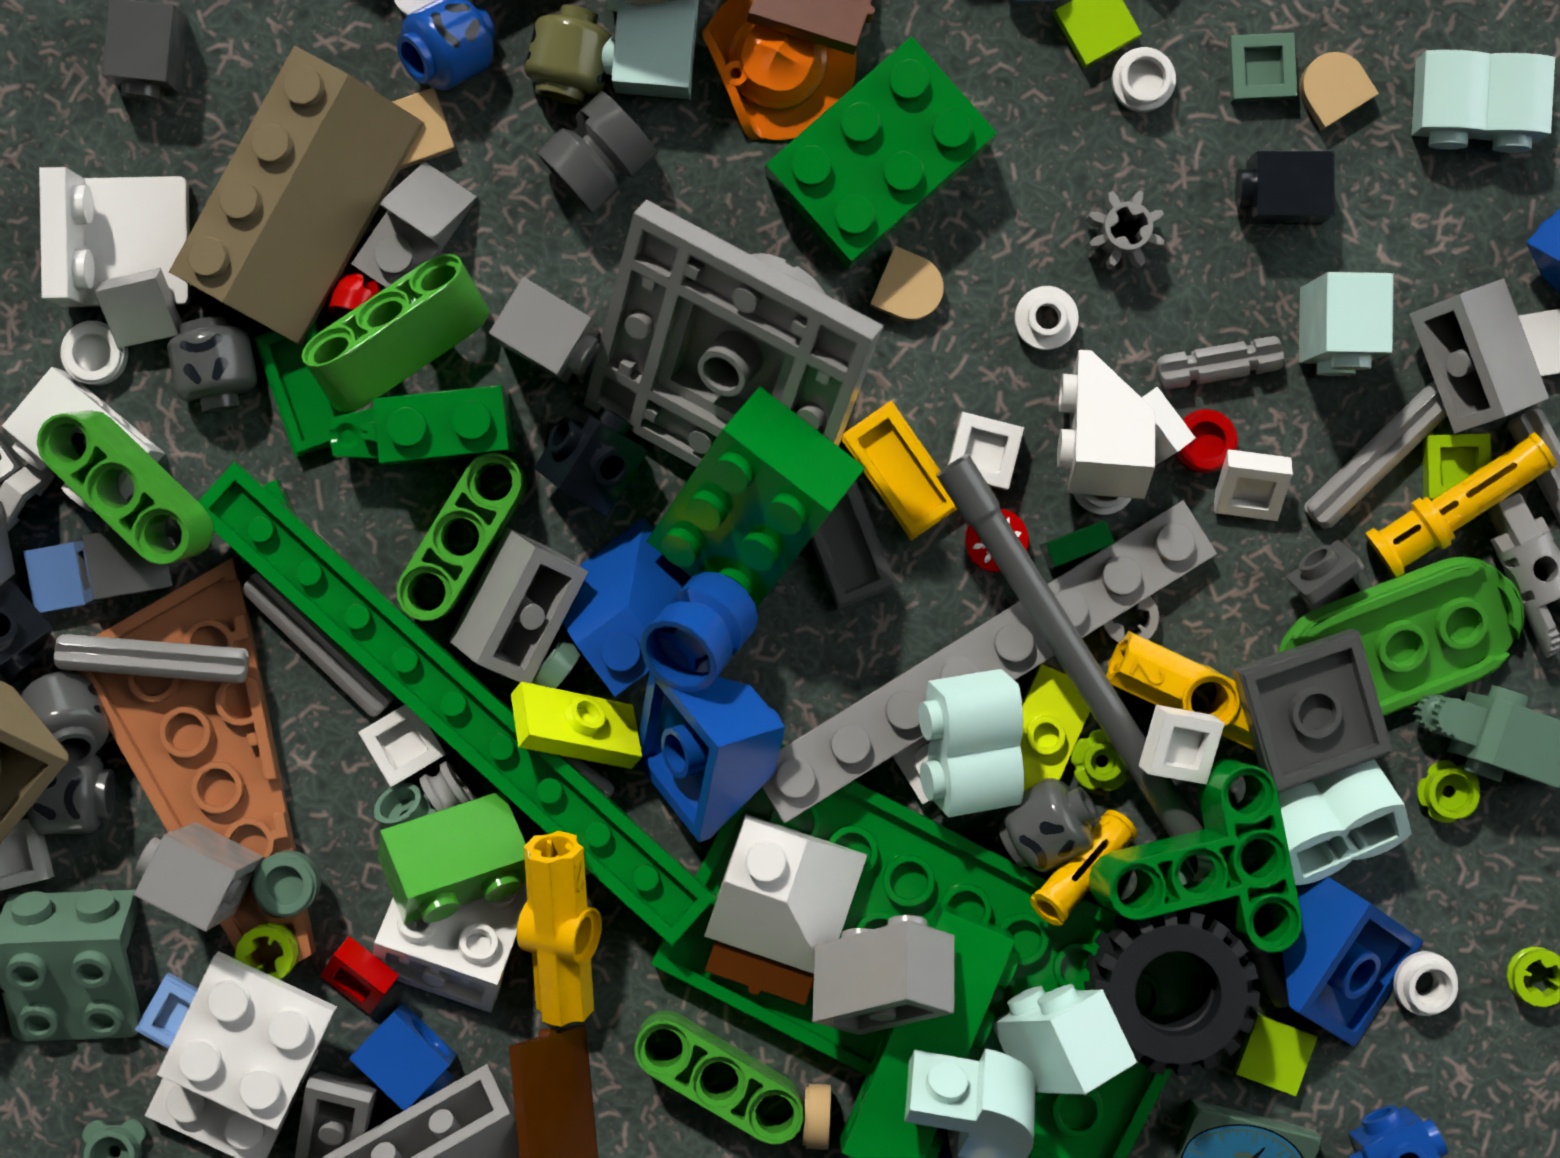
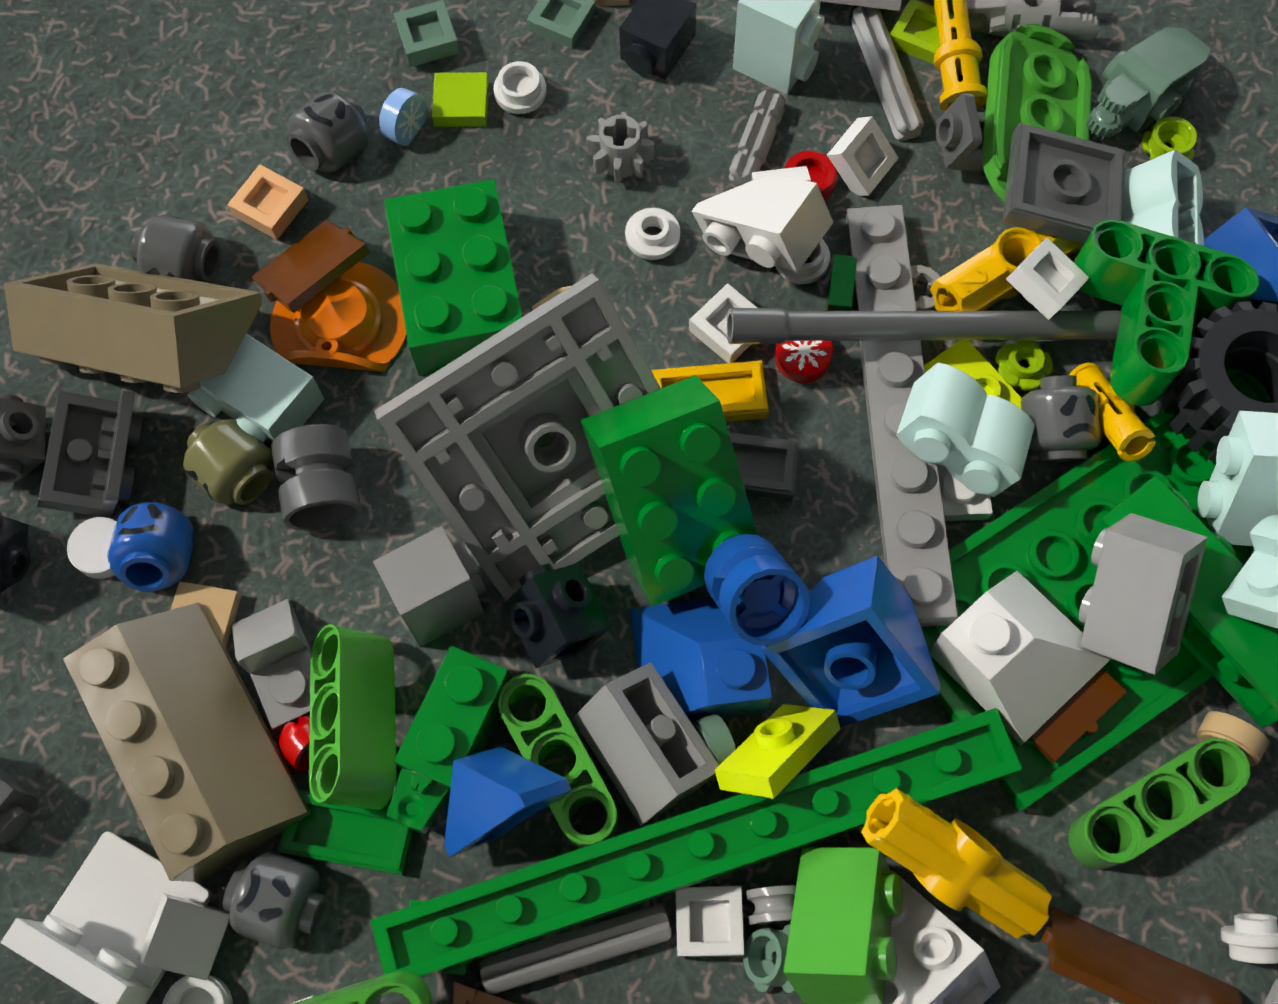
camera: 60 degrees left, 20 degrees down
(397, 505) = (495, 795): none -> blue slope

